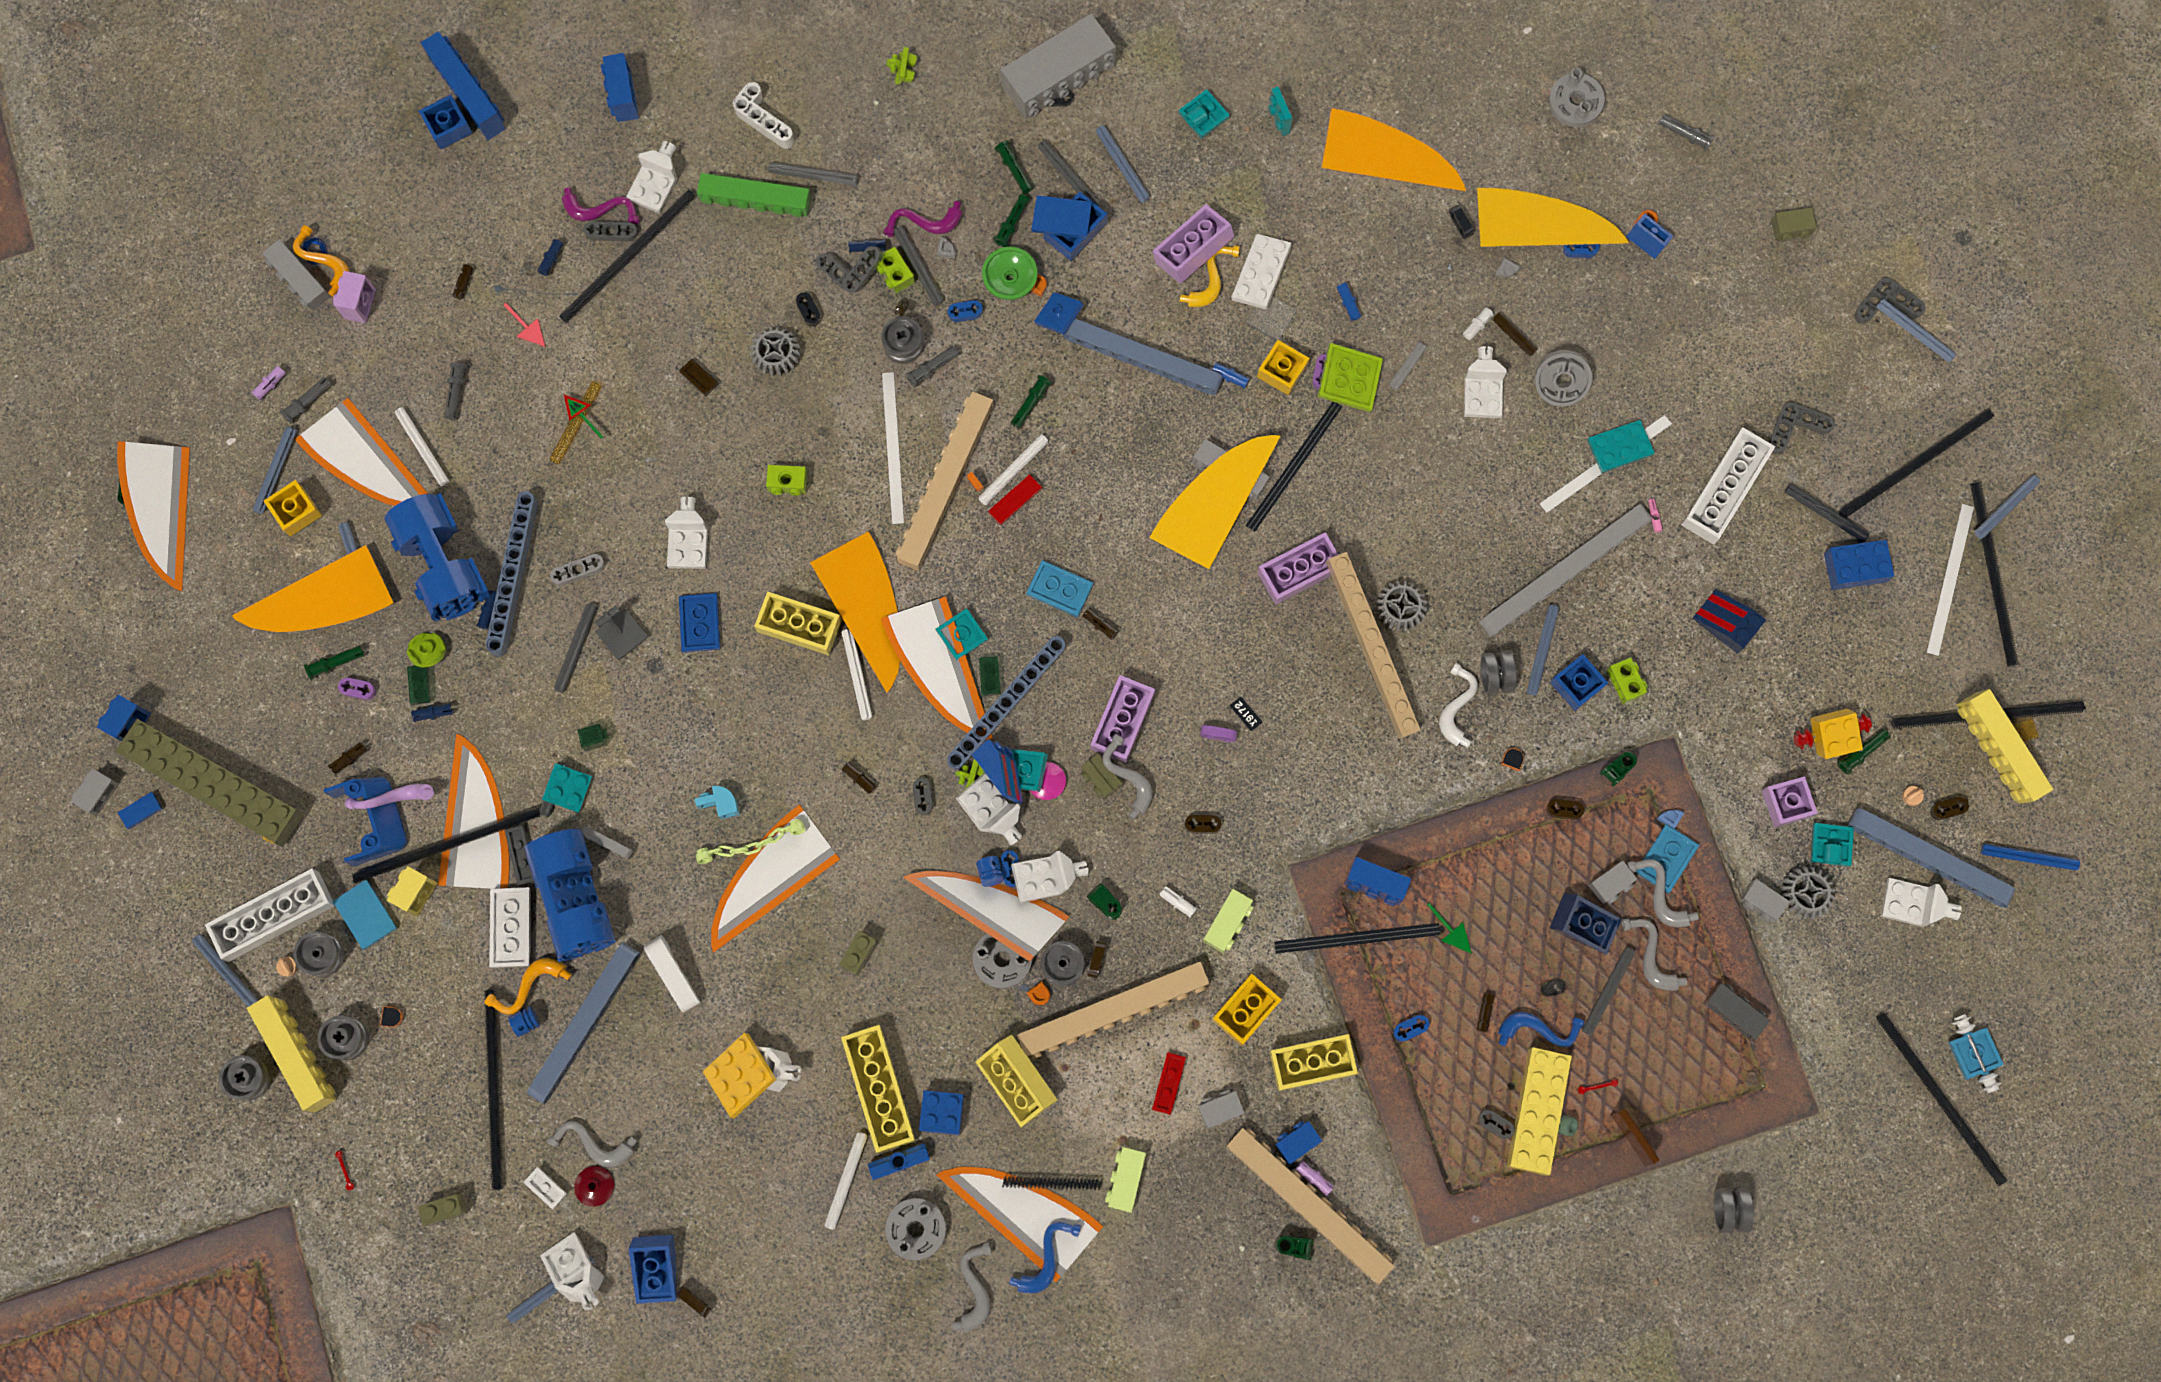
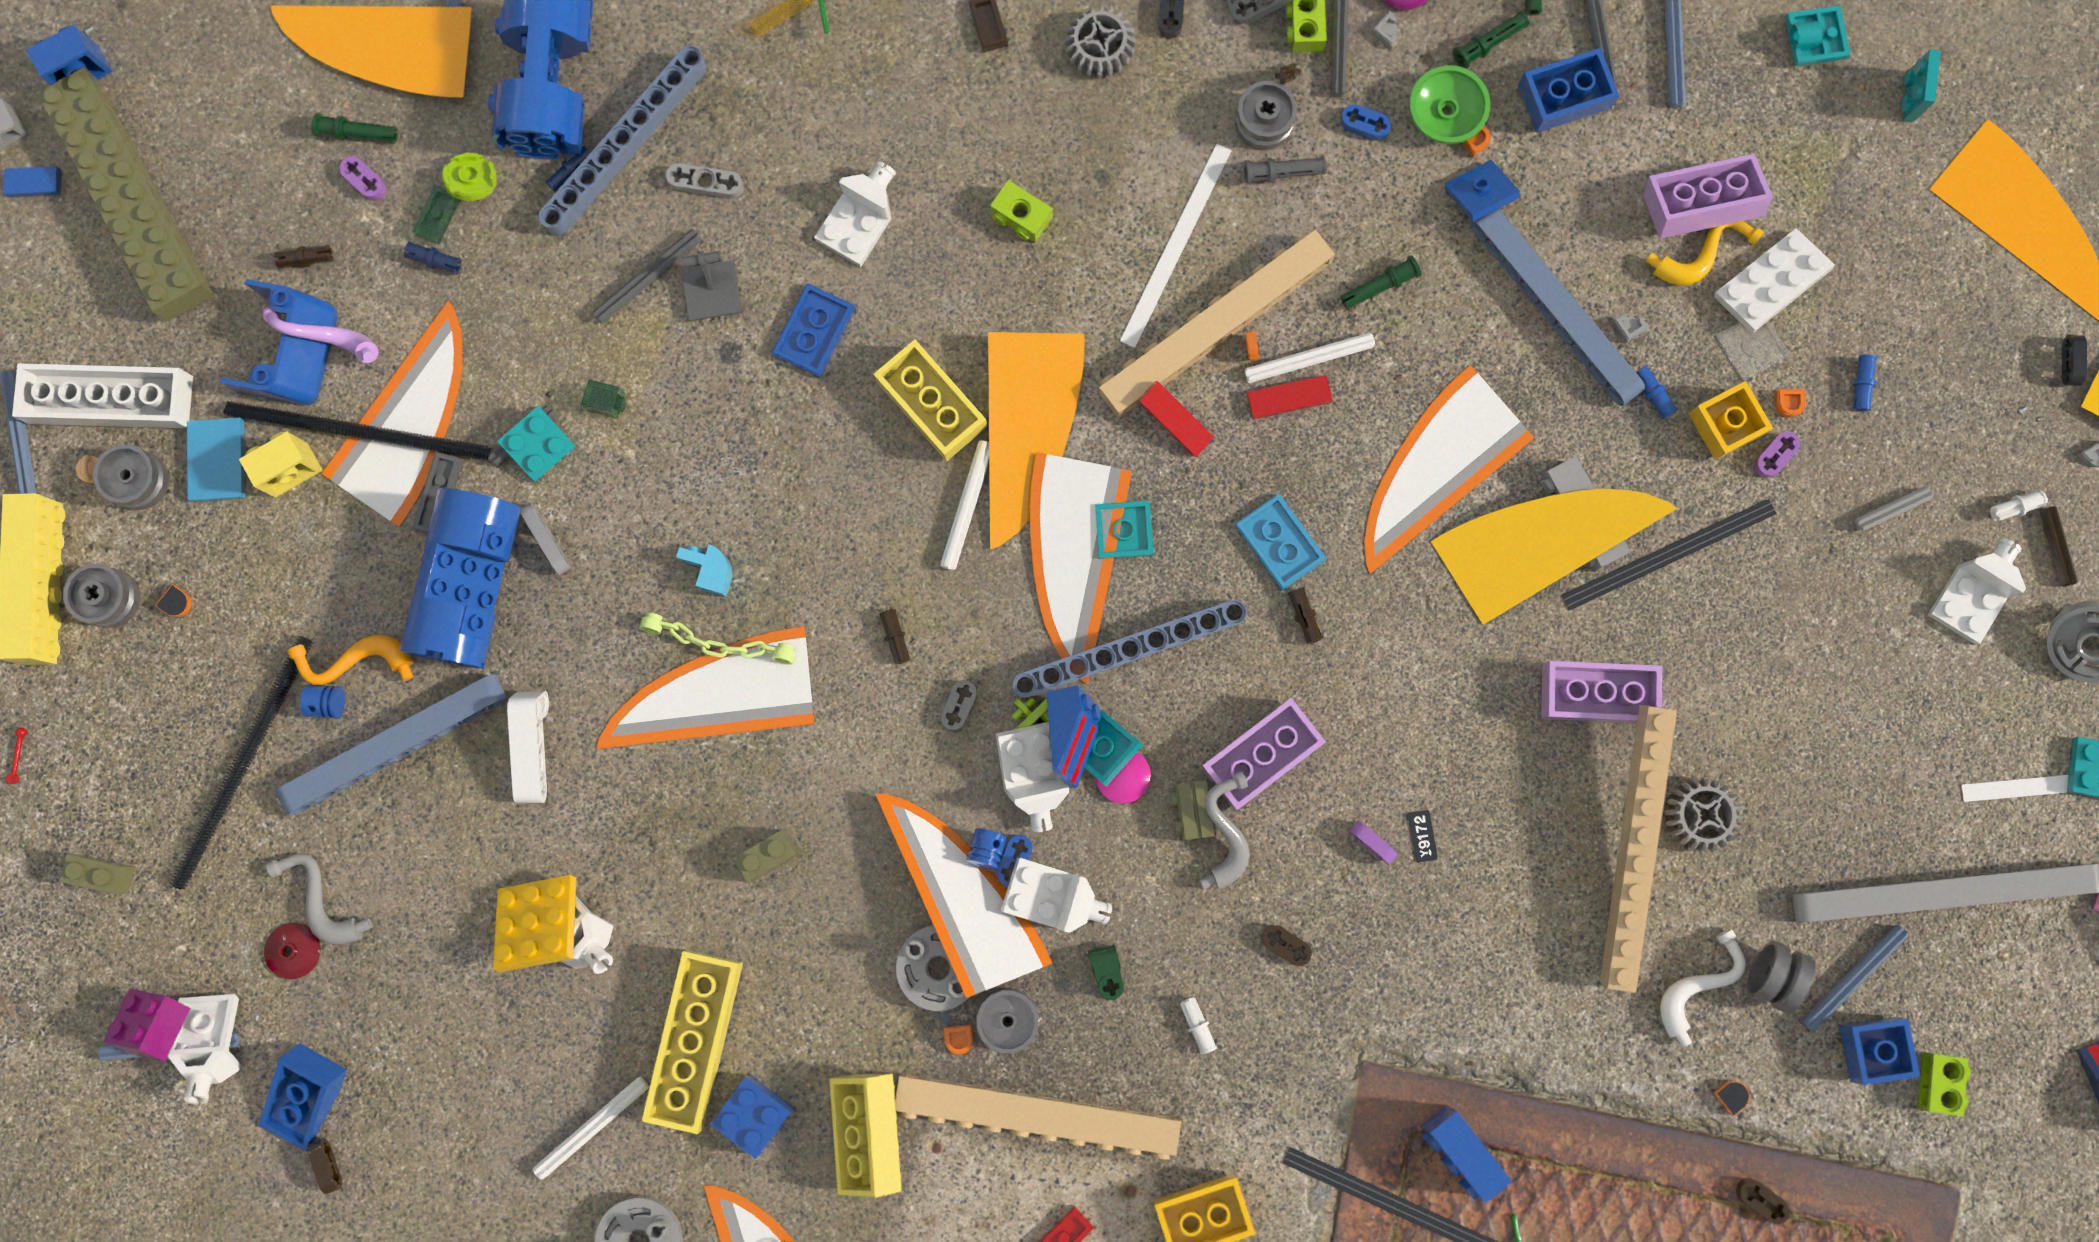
camera: 35 degrees right, 5 degrees up
(510, 927) = (373, 576): white plate -> none
(531, 1278) = (147, 1024): none -> magenta brick
(545, 1188) = (232, 919): white plate -> none
(886, 1165) = (648, 1142): blue piece -> none
(954, 550) = (1175, 419): none -> tile
(989, 676) = (1128, 602): clear green plate -> none
(1061, 217) = (1558, 68): blue tile -> none
(1096, 959) = (1054, 1038): dark brown beam -> none
(1127, 487) = (1442, 459): none -> sticker
(1193, 345) = (1629, 326): none -> light grey tile
(1228, 921) = (1247, 1089): yellowish green brick -> none
(1312, 337) = (1790, 402): none -> orange tile
(1350, 377) = (1809, 482): lime plate -> none
(1617, 770) = (1860, 1191): dark green piece -> none

